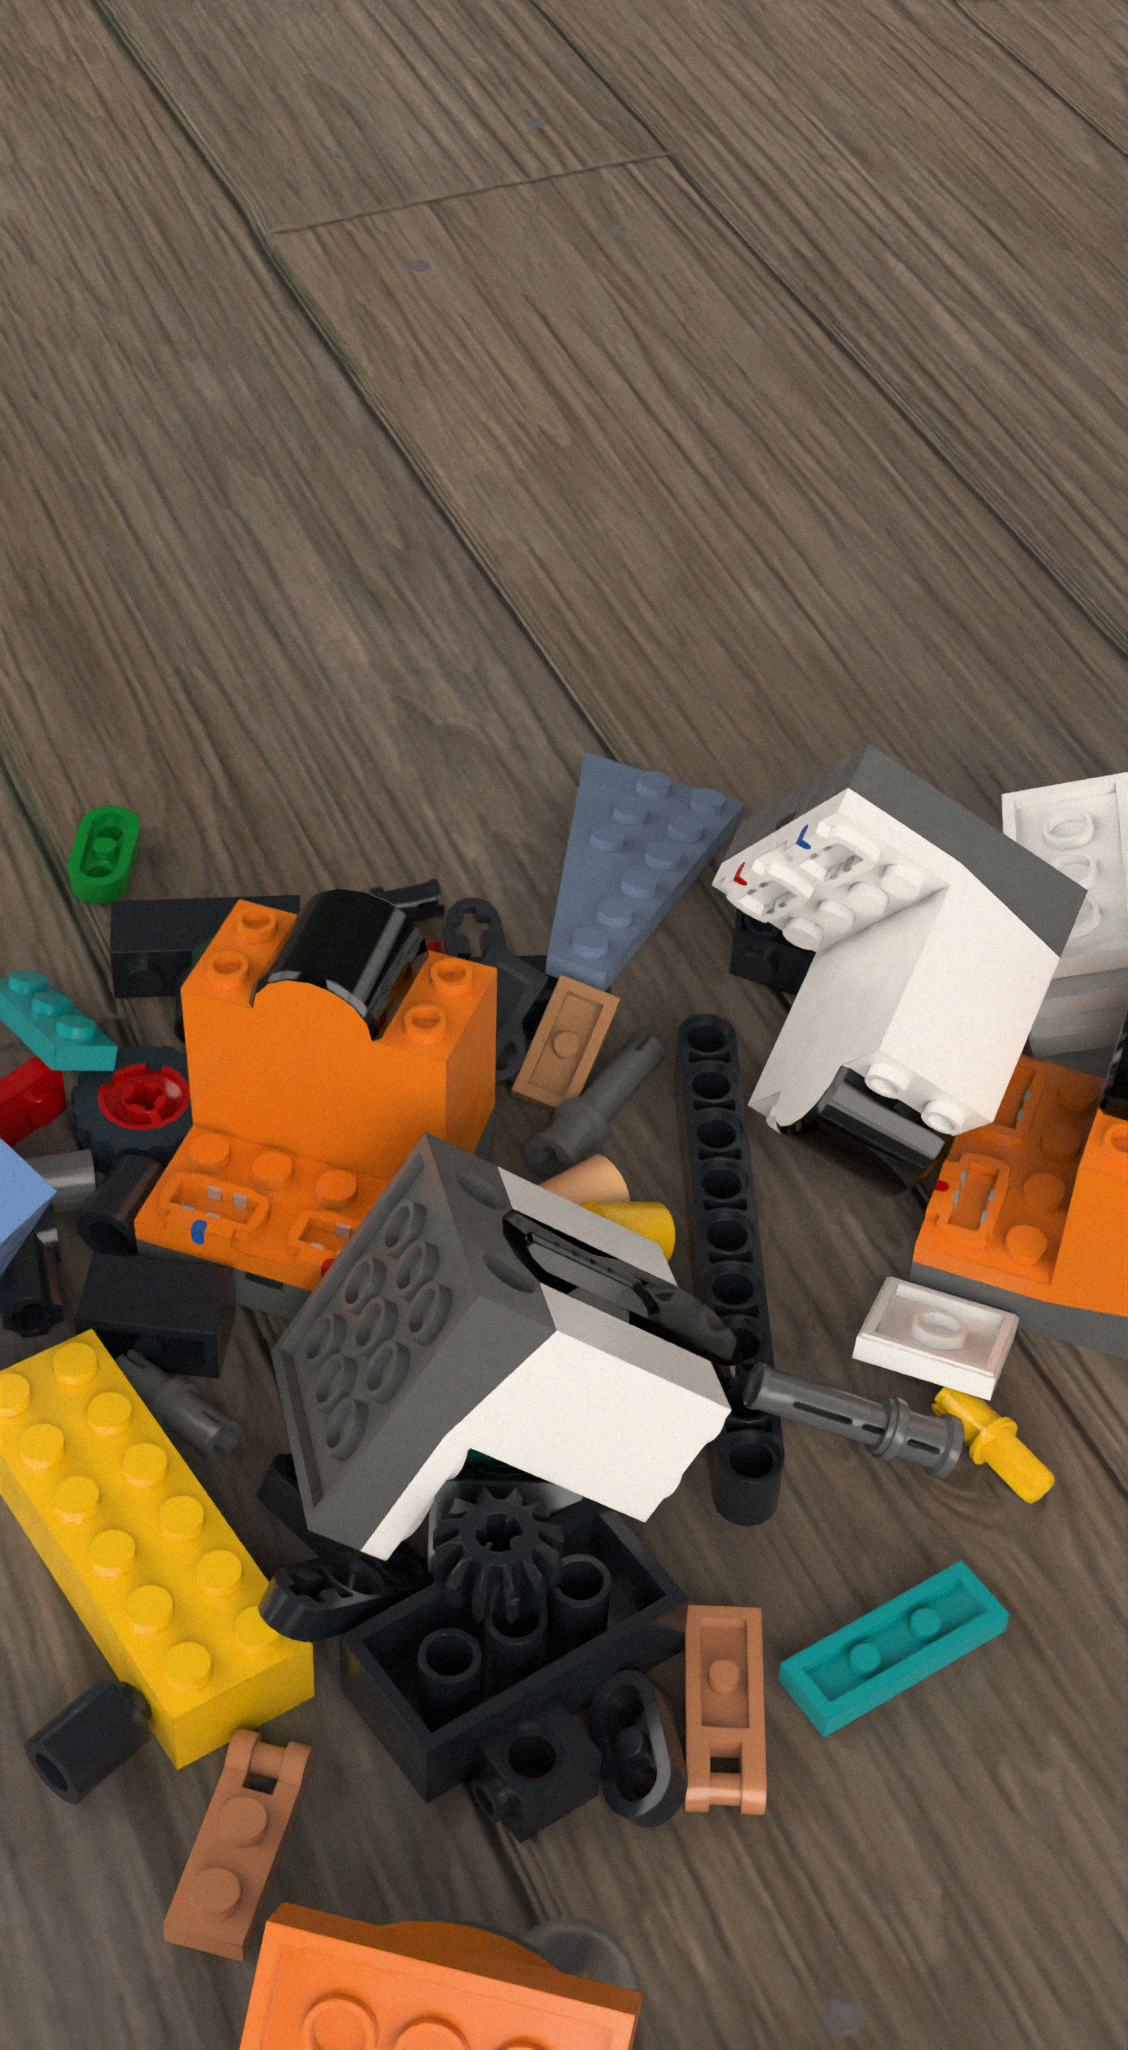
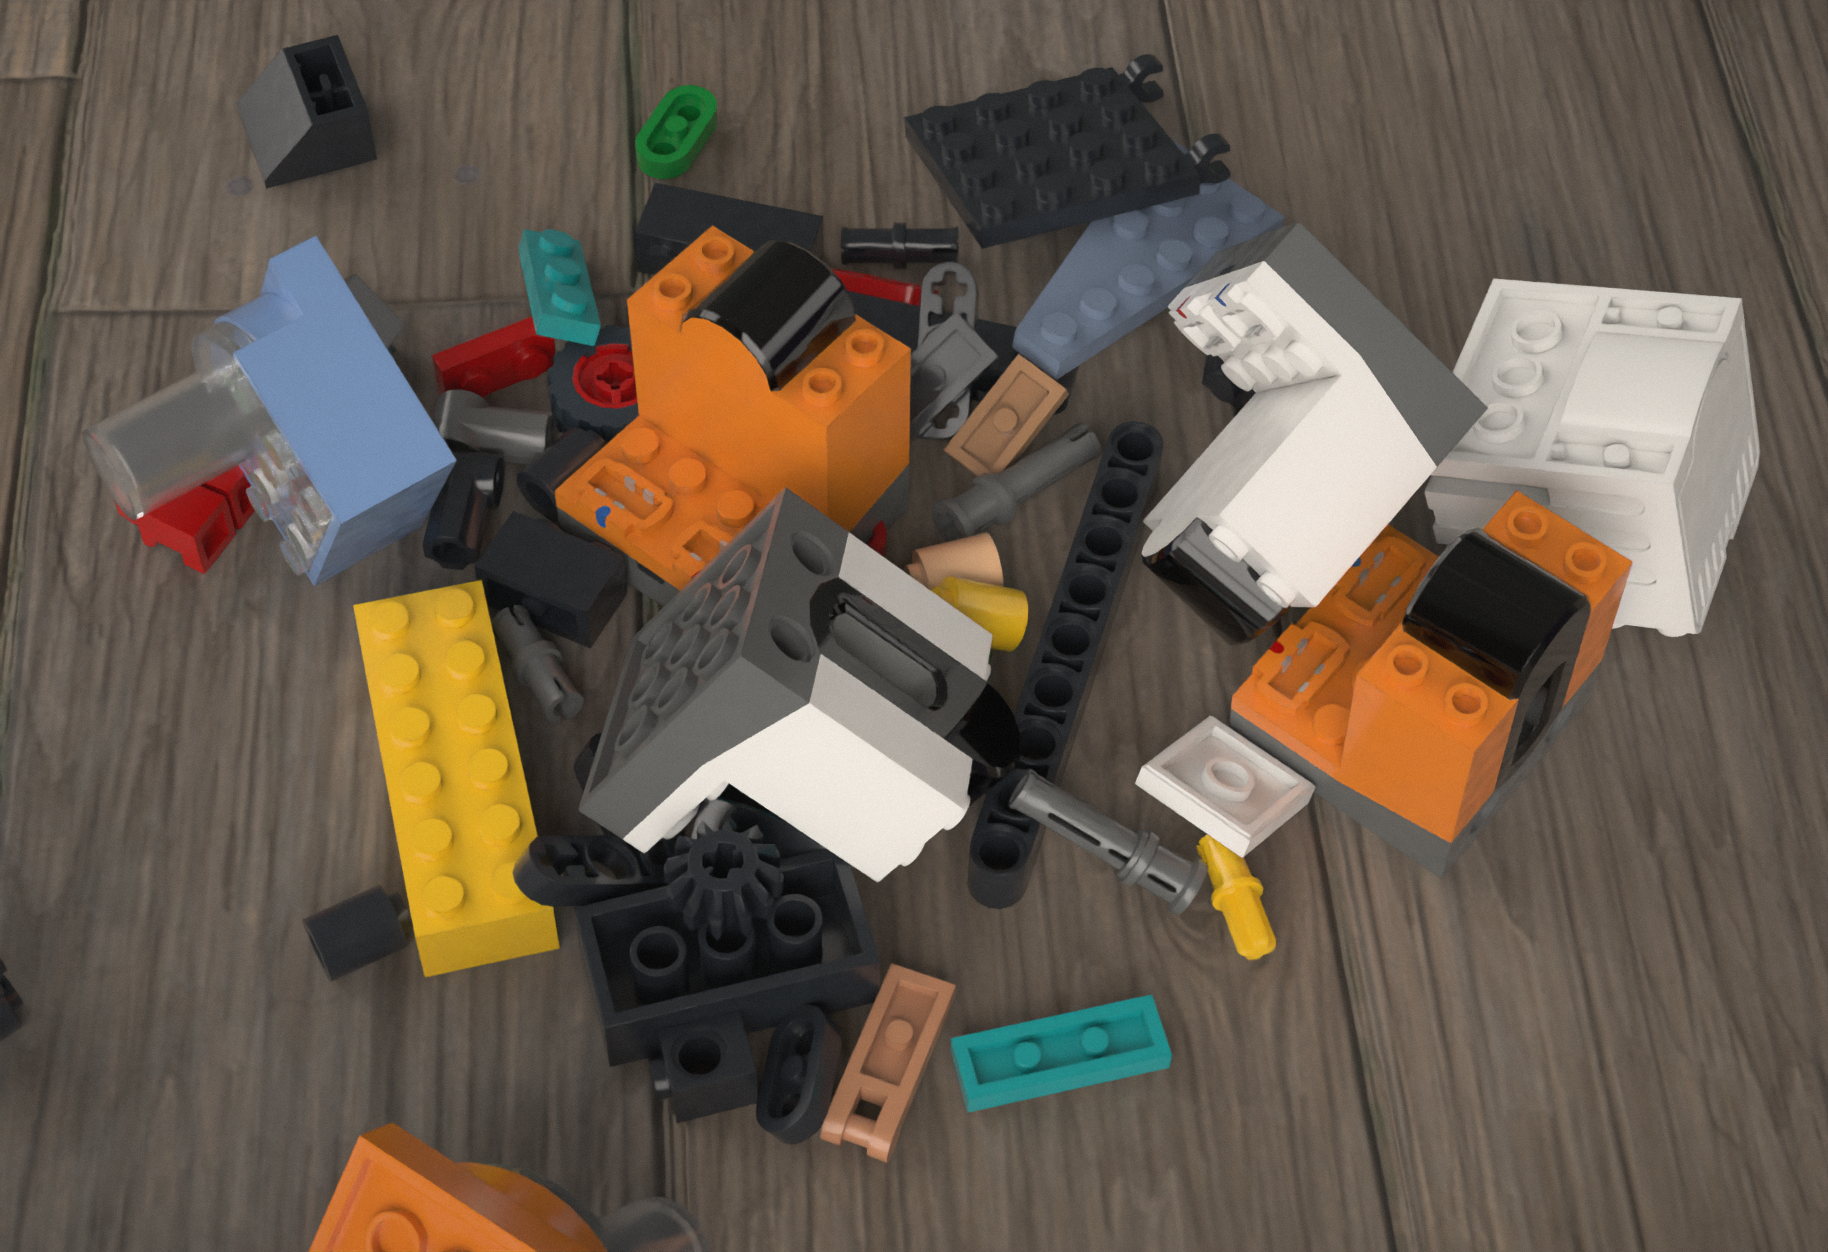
camera: 20 degrees right, 10 degrees up
(238, 1847) = (448, 1052): nougat plate -> none
(504, 791) = (1060, 153): none -> black plate

